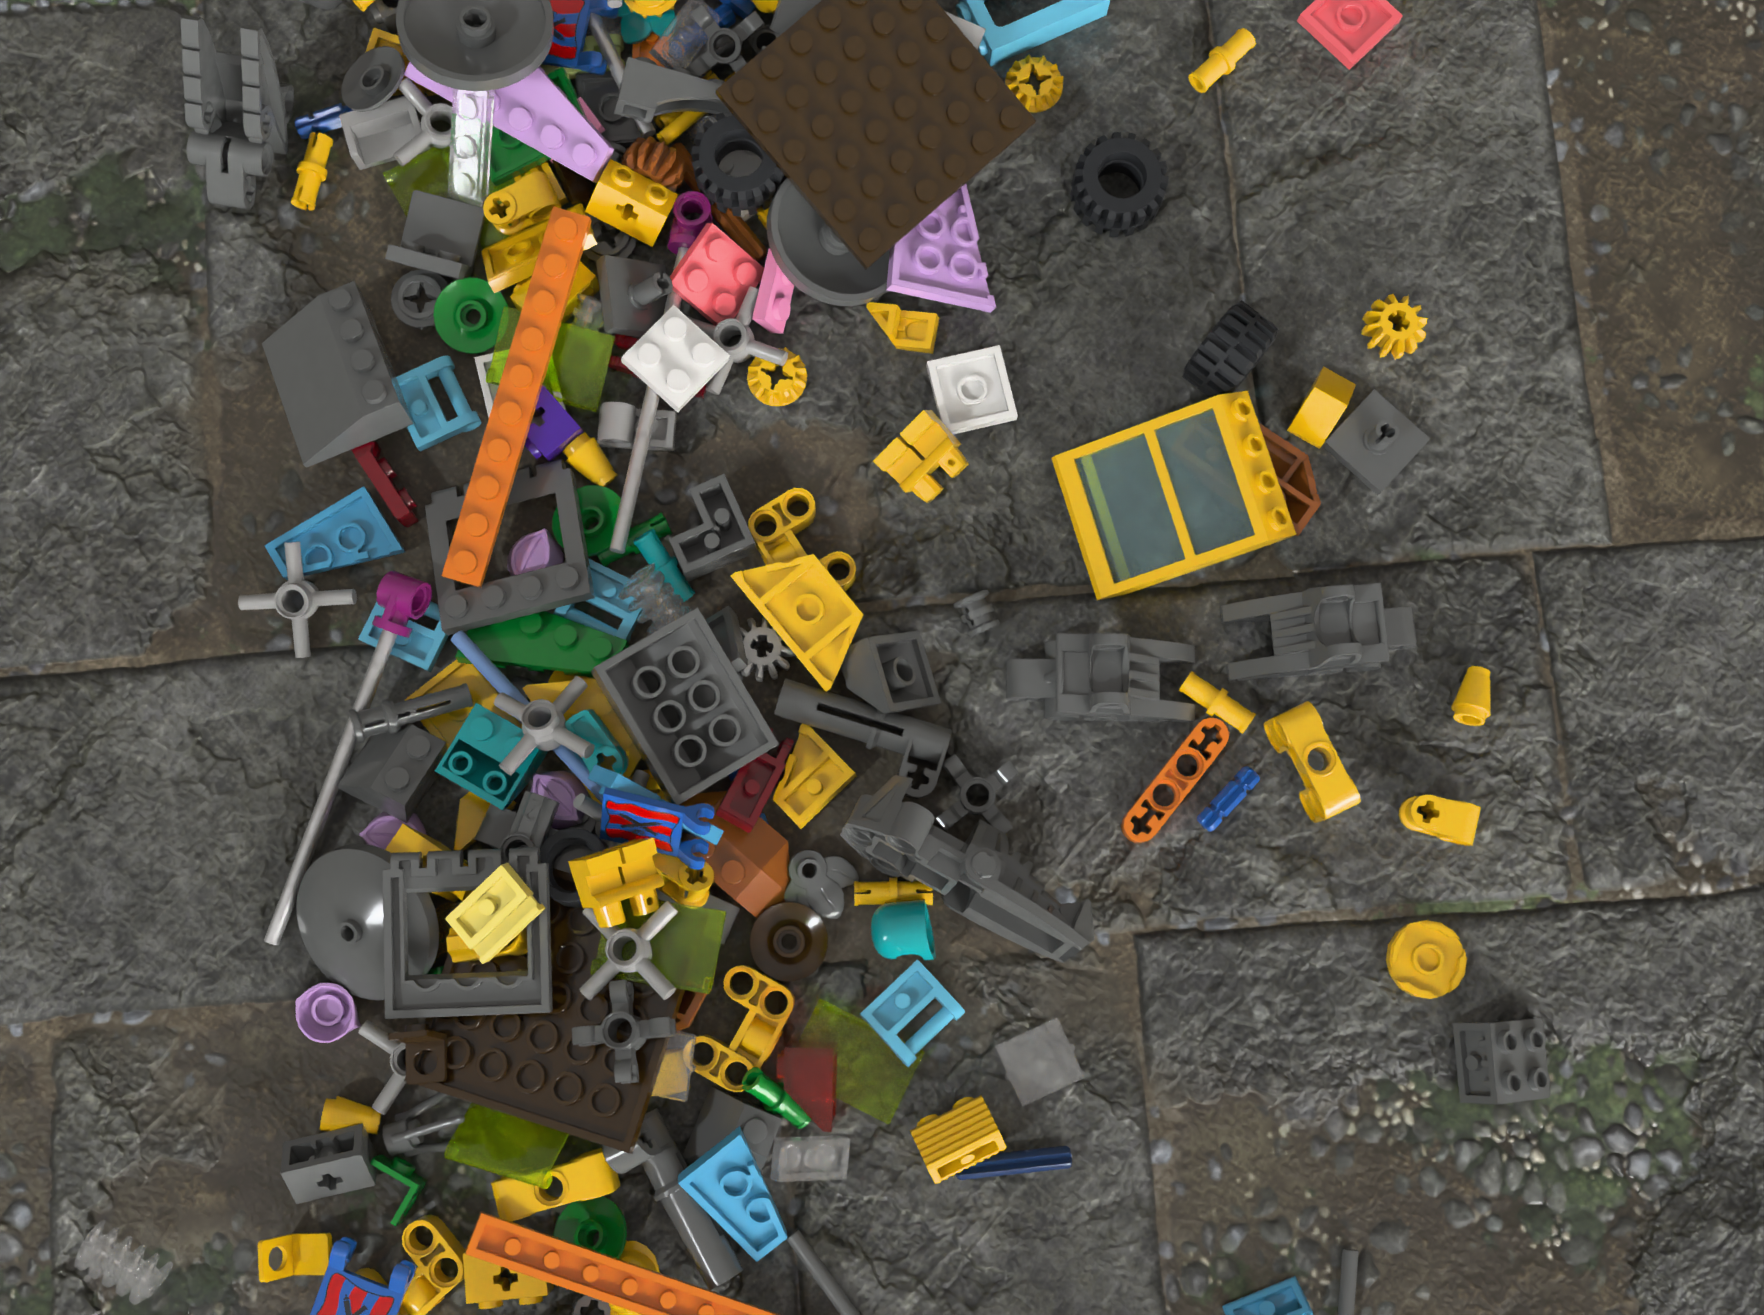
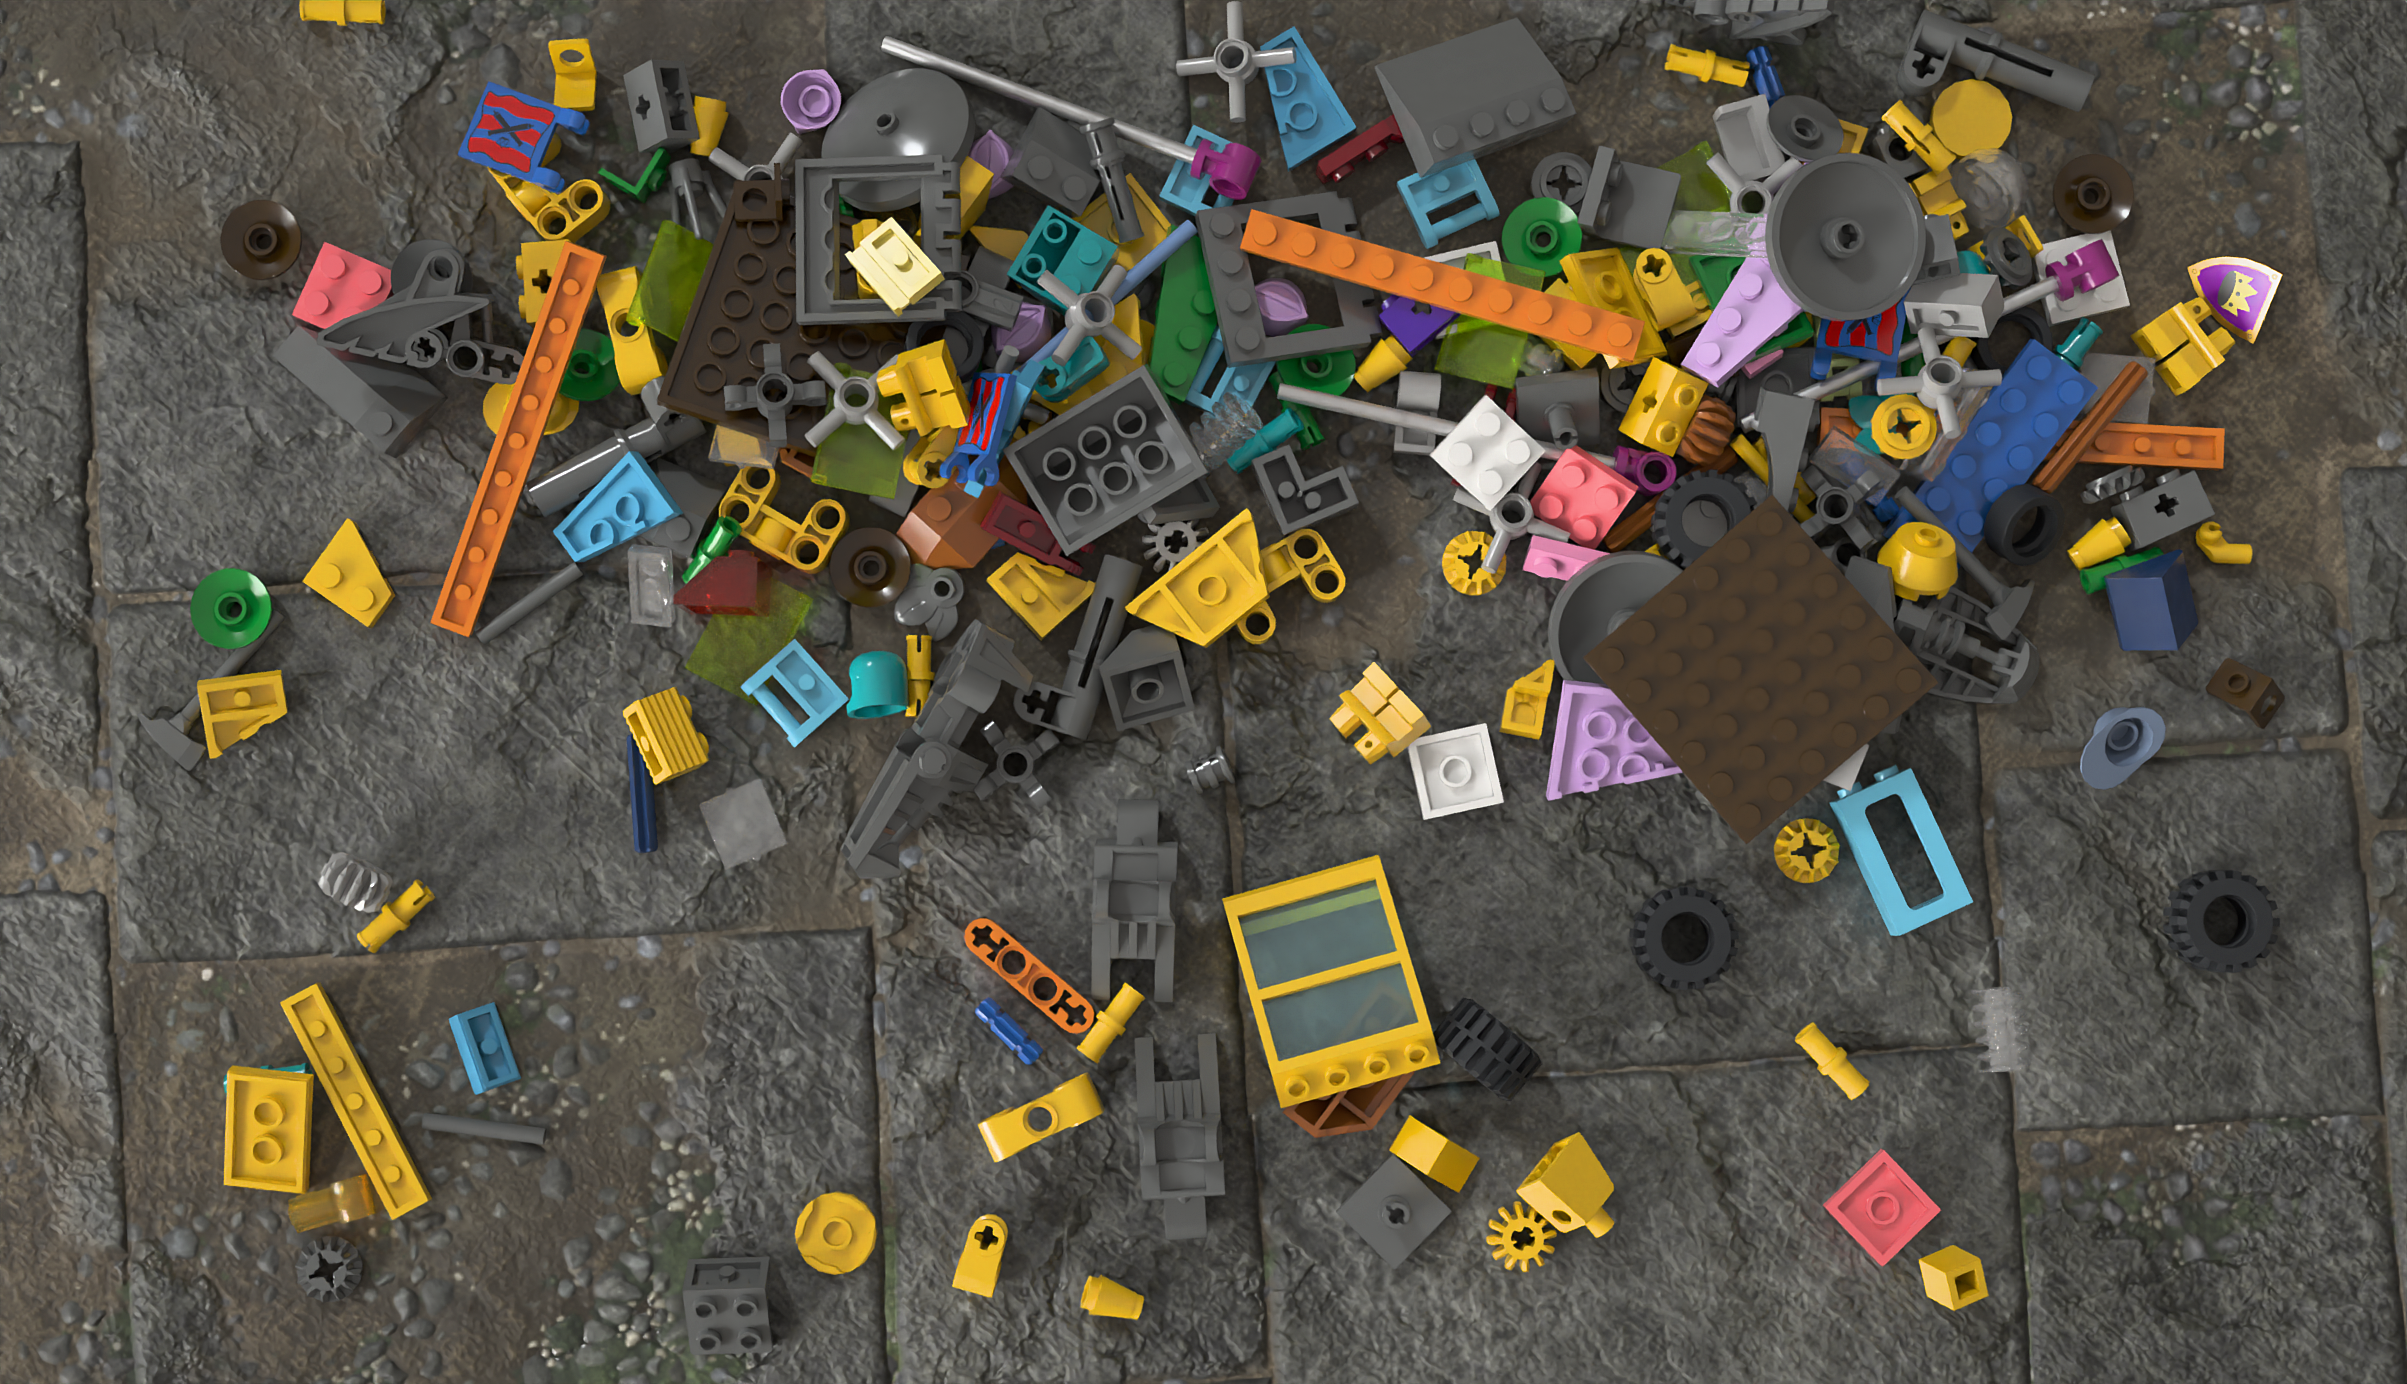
camera: 95 degrees right, 5 degrees up
(1348, 281) = (1570, 1187): none -> yellow torso

